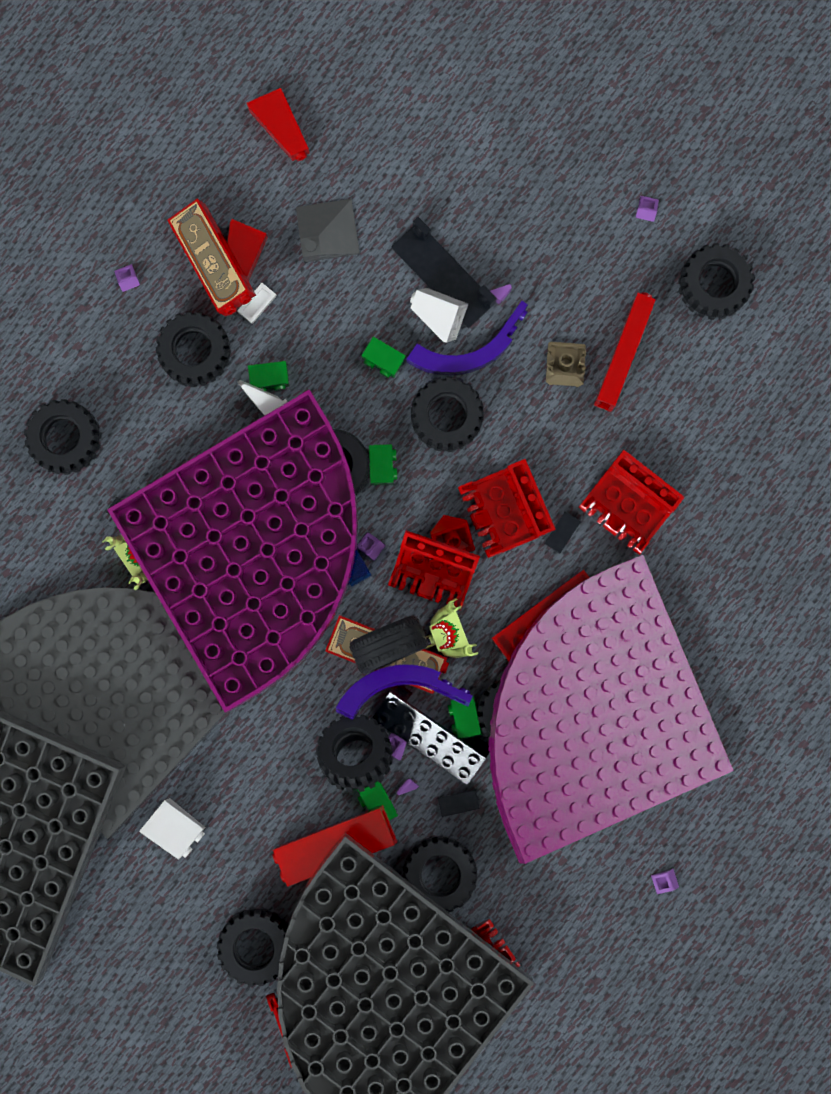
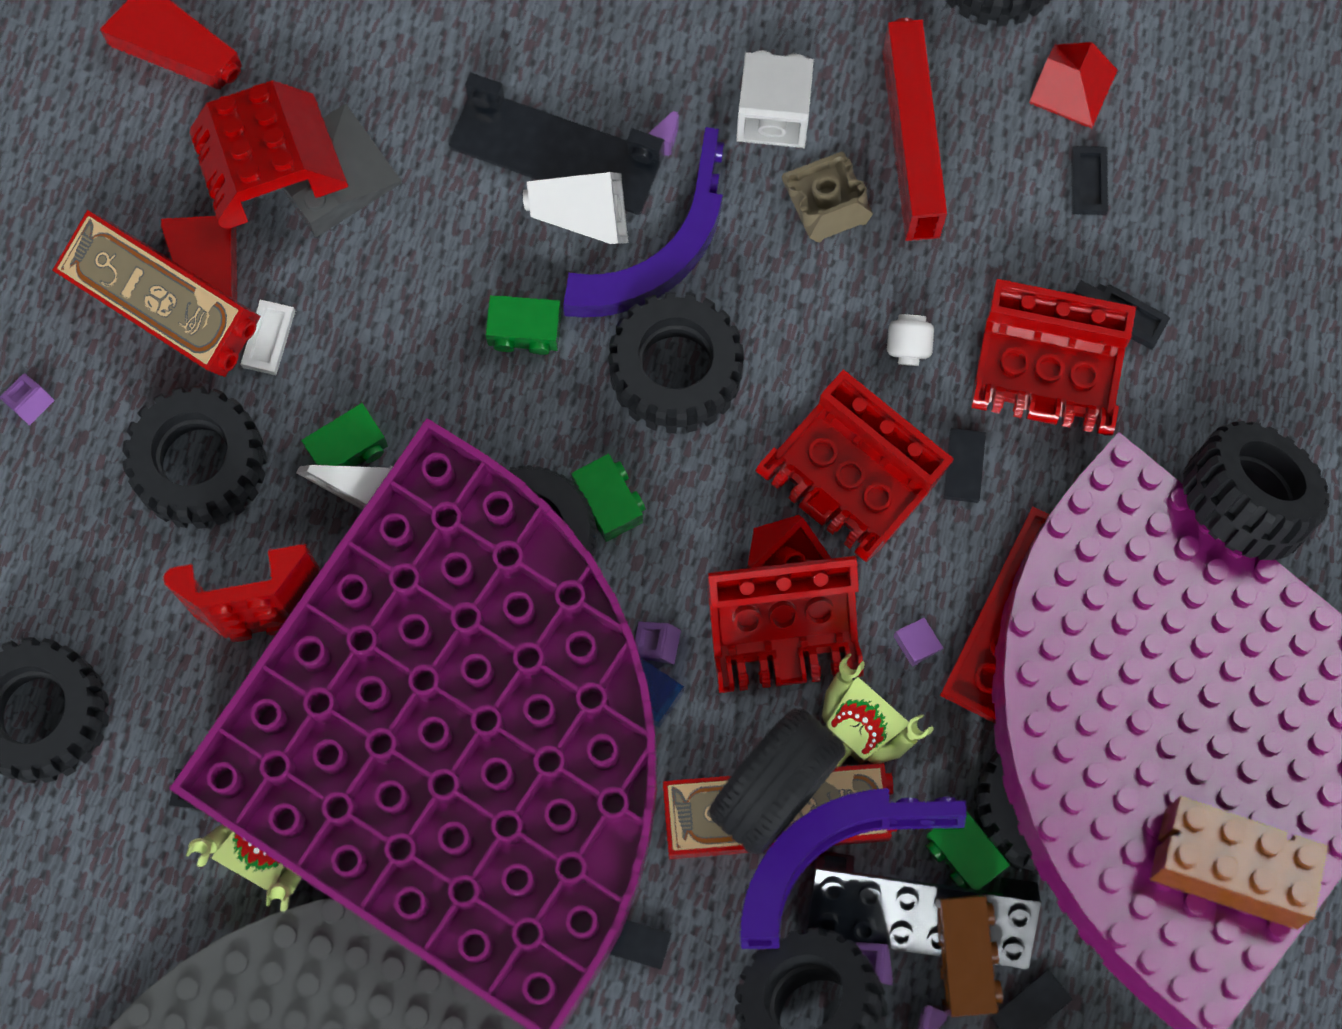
camera: 25 degrees left, 10 degrees down
(208, 435) = (250, 607): none -> red slope
(293, 685) = (642, 944): none -> black tile
(298, 206) = (262, 144): none -> red slope
(438, 766) = (968, 956): none -> reddish brown wedge
(495, 607) = (917, 641): none -> medium lavender slope
(564, 300) = (775, 99): none -> white slope
(568, 457) = (910, 339): none -> white head
(580, 789) = (1239, 863): none -> piece
(674, 619) = (1255, 490): none -> black tyre
(689, 505) = (1148, 321): none -> black hinge
(700, 419) = (1089, 180): none -> black tile
(720, 364) = (1074, 82): none -> red slope

